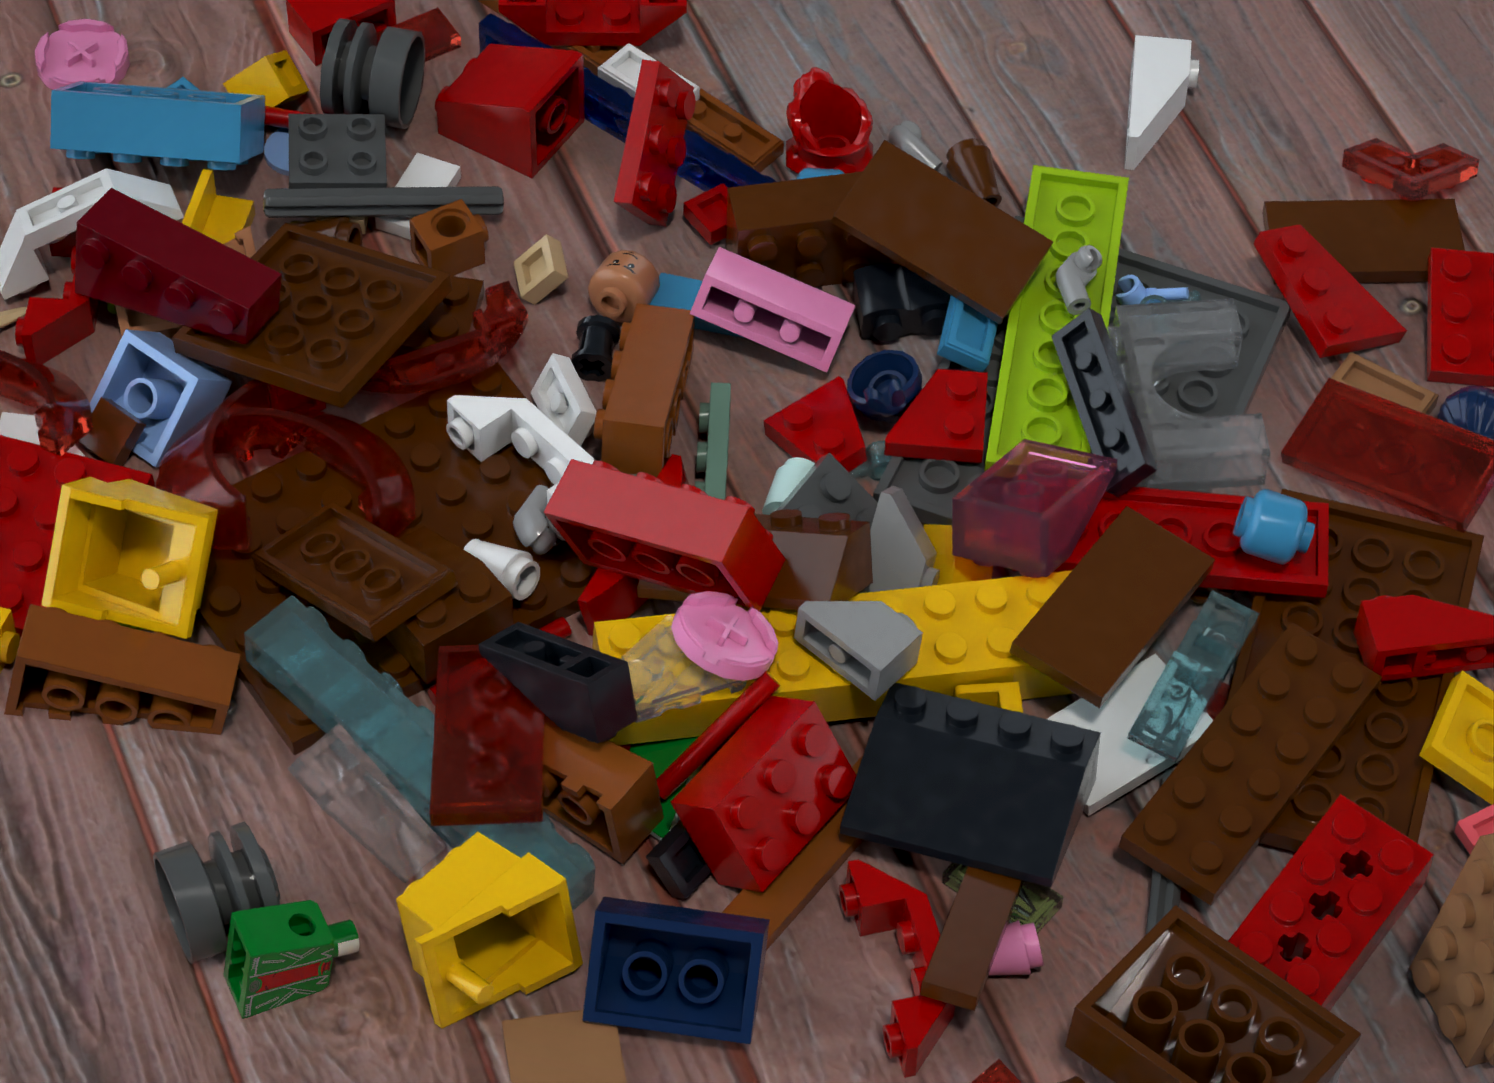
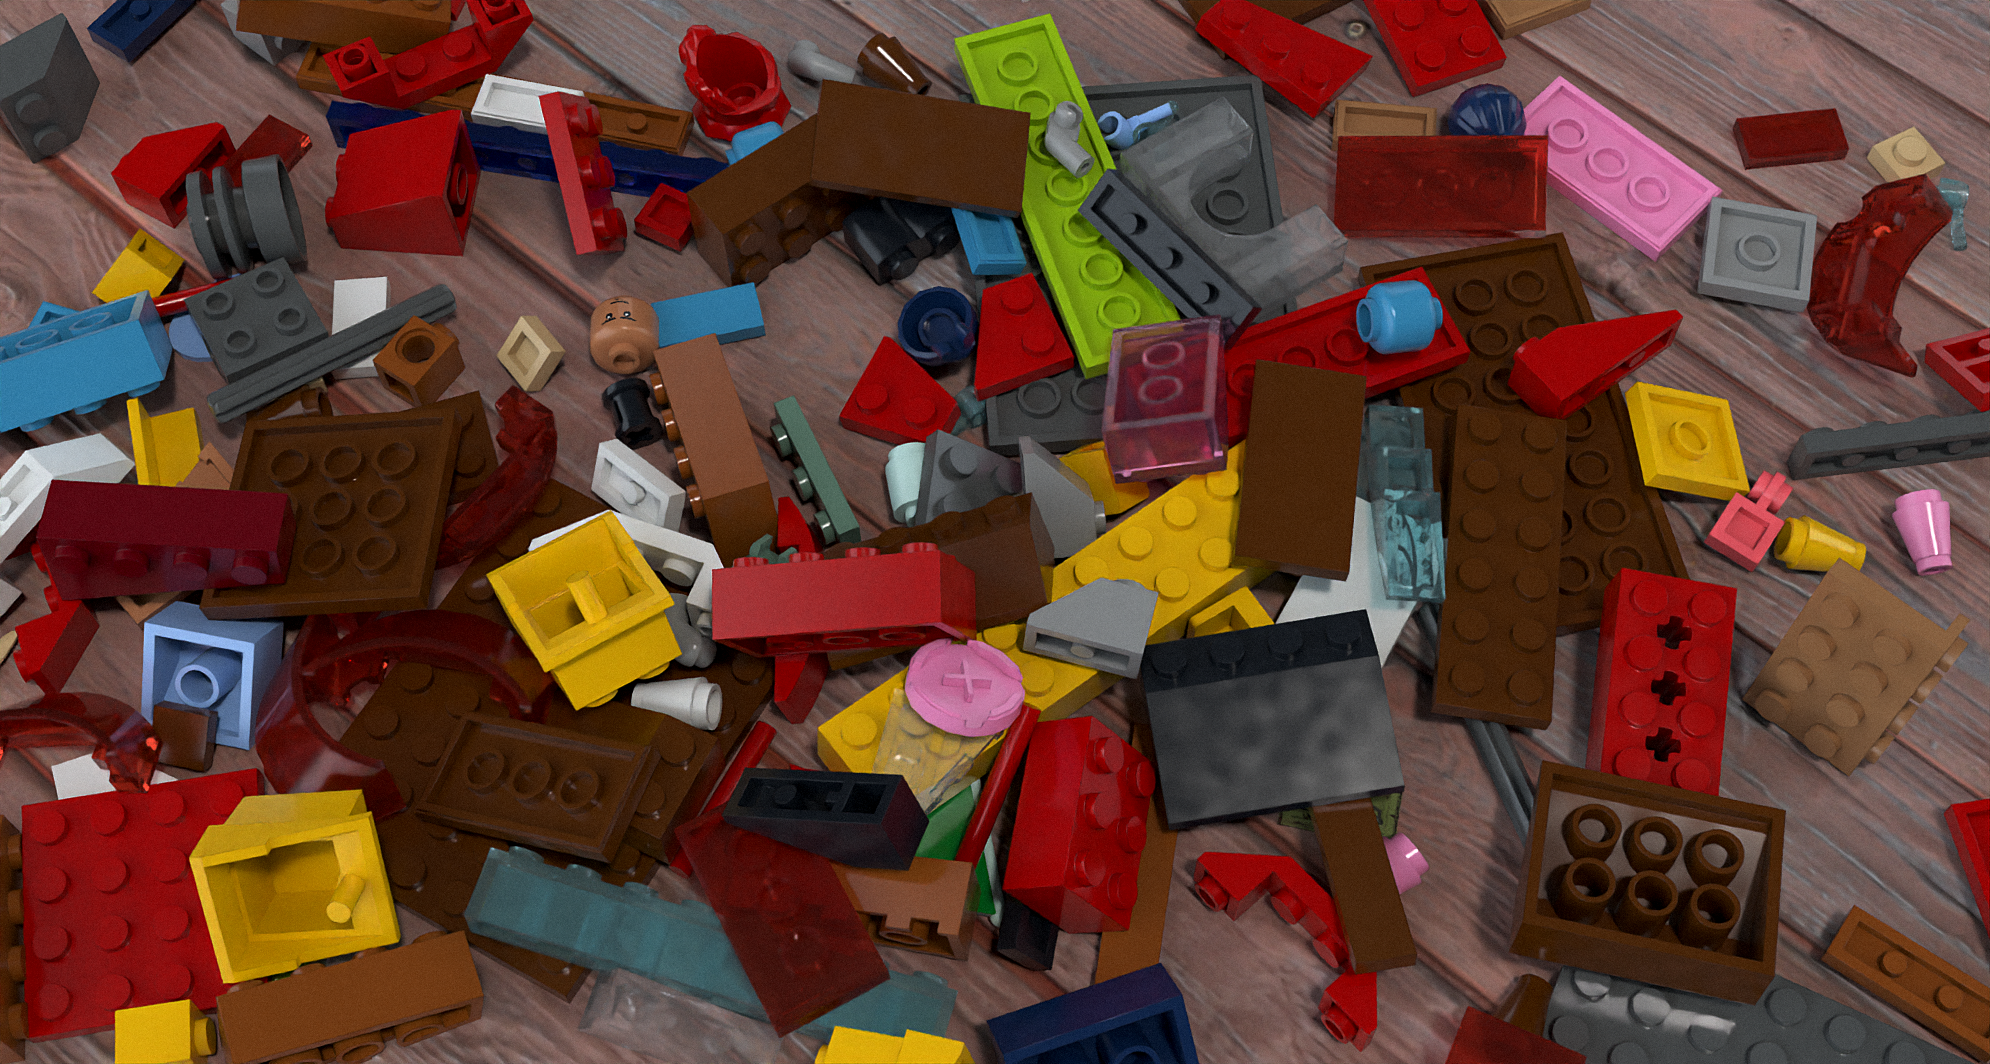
camera: 25 degrees left, 10 degrees up
(463, 460) = (589, 610): none -> yellow piece
(772, 309) = (789, 297): bright pink brick -> none

